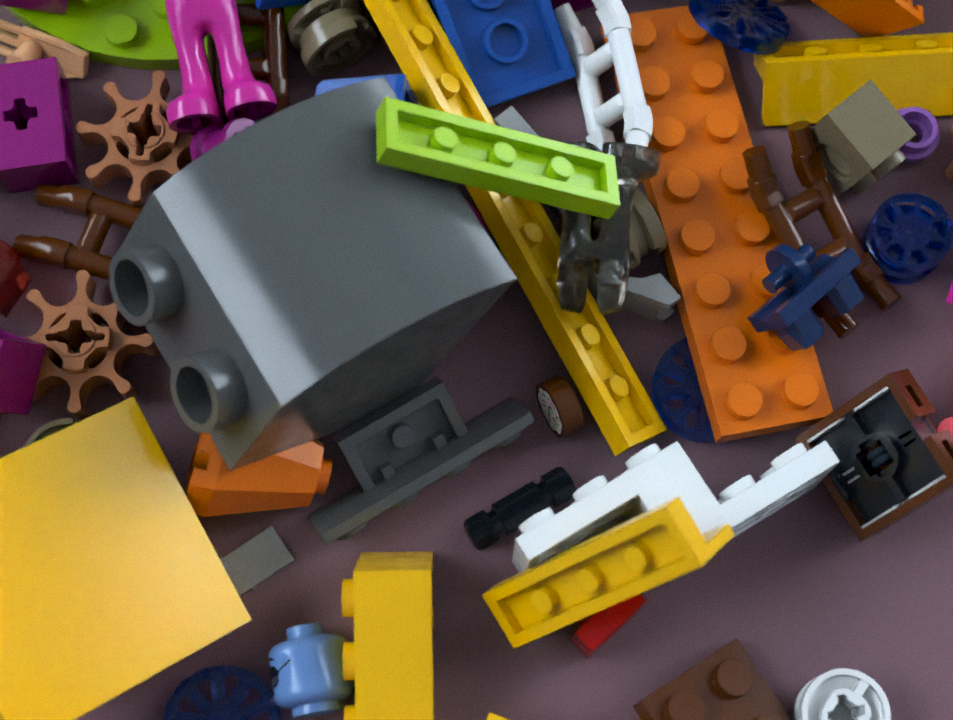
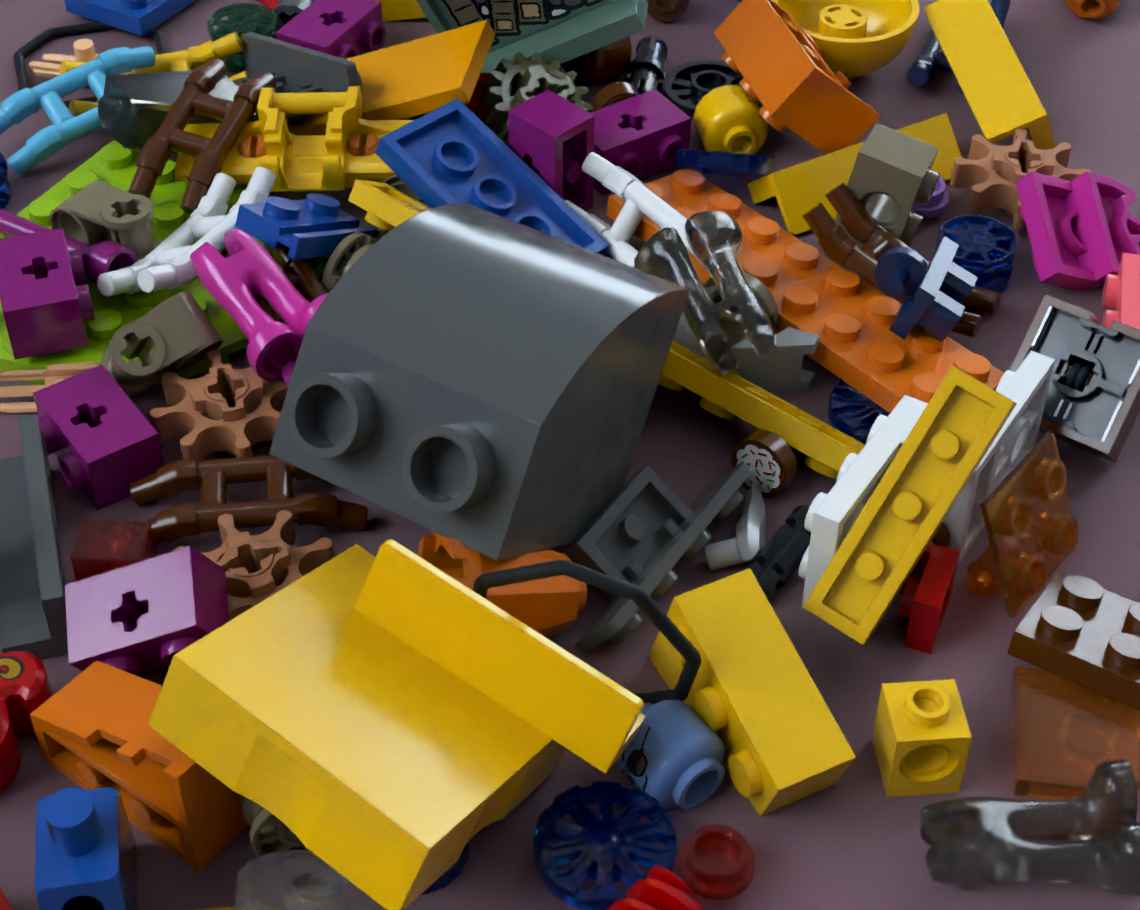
camera: 25 degrees left, 30 degrees down
(124, 48) = (165, 339): none -> dark tan piece
(187, 567) = (500, 656): none -> yellow panel
(314, 619) = (616, 586): none -> black piece
(495, 158) = (590, 220): lime plate -> none
(507, 471) = (749, 535): none -> light grey bar
(726, 598) = (1026, 528): none -> clear orange hinge

